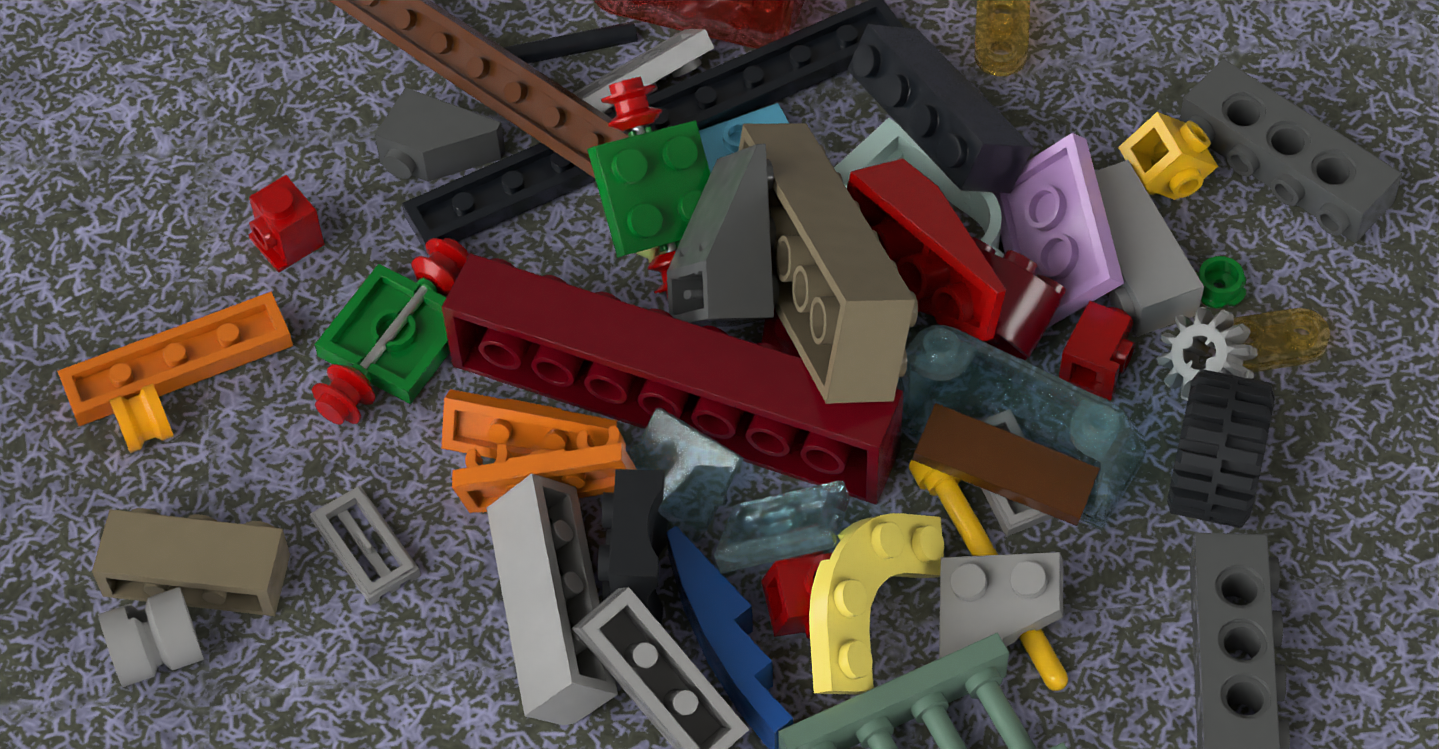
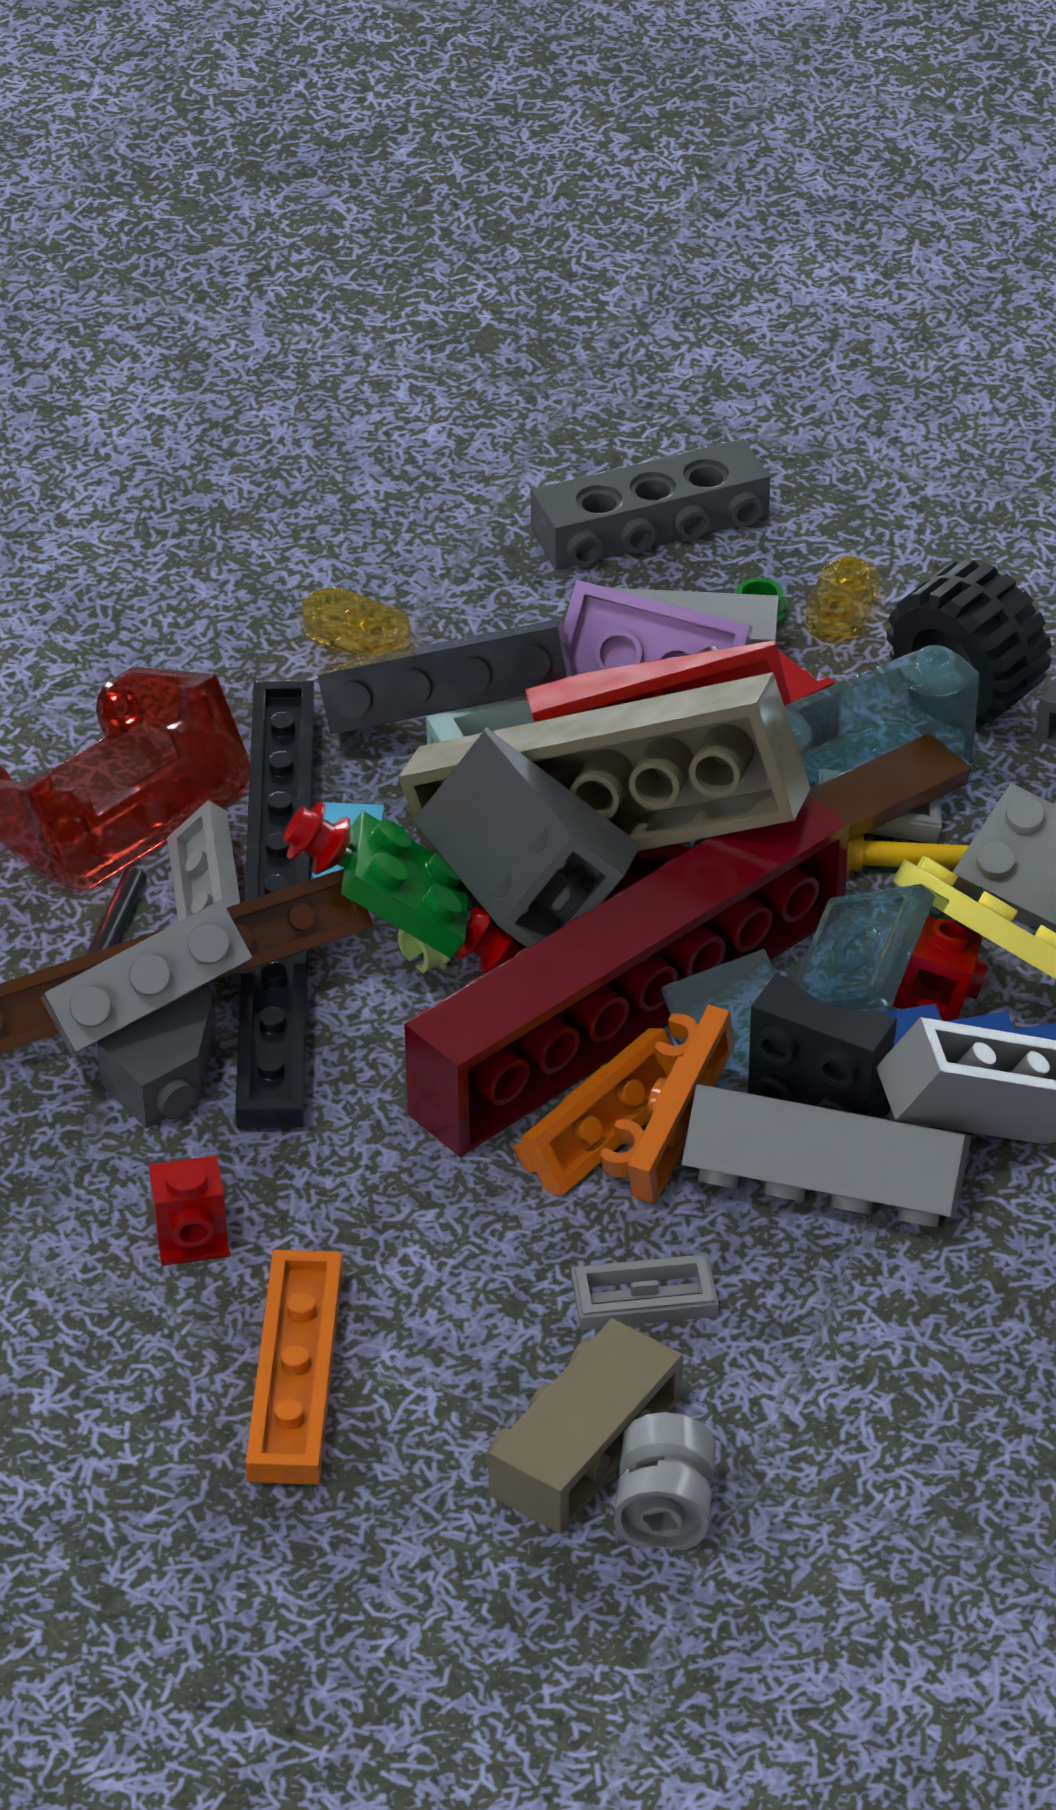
camera: 65 degrees left, 15 degrees down
(141, 418) = (360, 1412): light orange wheel -> none
(388, 334) = (395, 1176): green plate -> none
(465, 81) = (146, 977): none -> light grey brick
(1169, 156) = (605, 547): yellow brick -> none
(1195, 342) = (827, 618): light grey gear -> none

